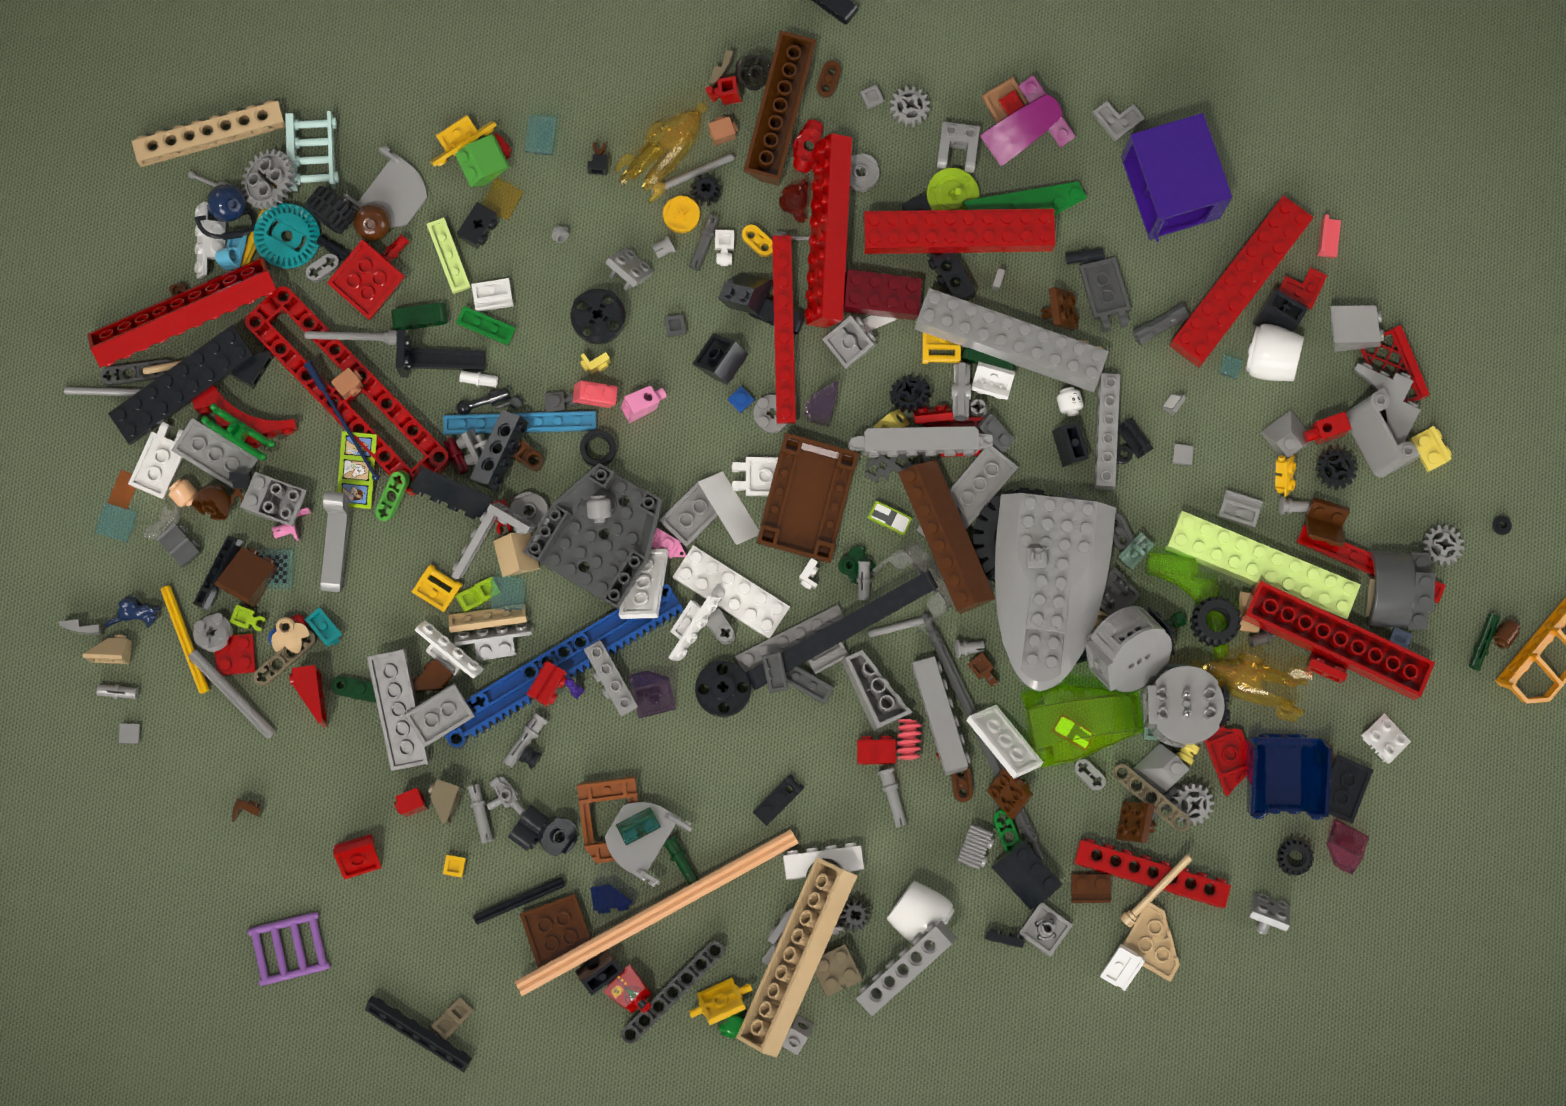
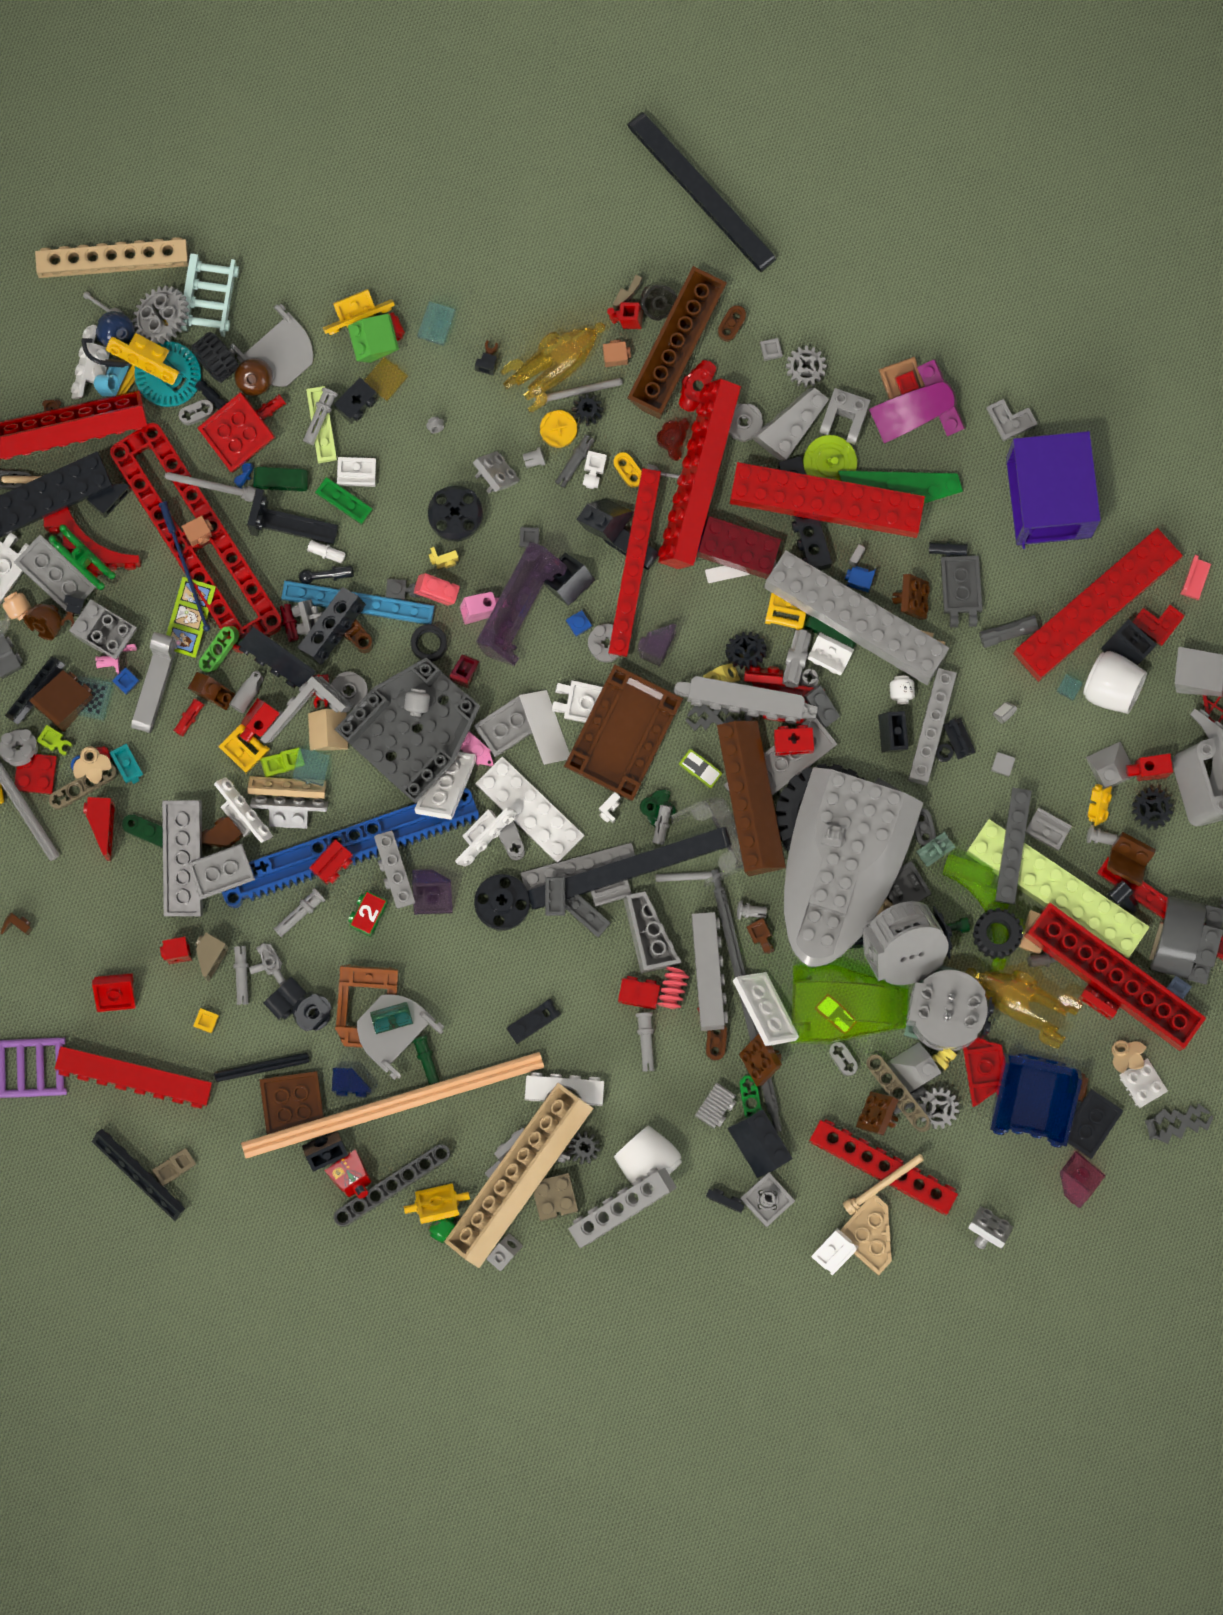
camera: 15 degrees right, 0 degrees up
(261, 222) = (144, 355): none -> yellow bracket
(306, 545) = (125, 681): none -> blue plate
(375, 569) = (188, 717): none -> red pin
(380, 325) = (240, 480): none -> blue piece
(393, 538) = (211, 690): none -> reddish brown slope
(393, 937) = (133, 1076): none -> red brick
(428, 533) = (247, 692): none -> light grey piece
(445, 237) = (325, 408): none -> light grey pin
(447, 550) = (263, 715): none -> red torso
(516, 401) = (358, 581): dark grey hand -> none
(530, 757) = (301, 930): black wheel -> none
(575, 689) = (358, 874): dark purple piece -> none
(593, 727) = (368, 913): none -> brick
(638, 469) = (464, 671): none -> dark red slope
(686, 355) = (516, 600): none -> clear purple windscreen
(850, 341) = (698, 586): light grey plate -> none
(906, 166) = (789, 426): none -> light grey wedge
(969, 480) = (785, 746): none -> red brick
(1005, 302) = (859, 578): none -> blue window
(1090, 888) = (820, 1169): reddish brown plate -> none
(1212, 532) = (1013, 846): none -> dark grey plate
(1305, 851) = (1039, 1180): black tyre -> none
(1328, 560) = (1122, 896): none -> black piece
(1368, 716) = (1129, 1057): none -> tan plate
(1434, 769) = (1185, 1122): none -> dark grey piece

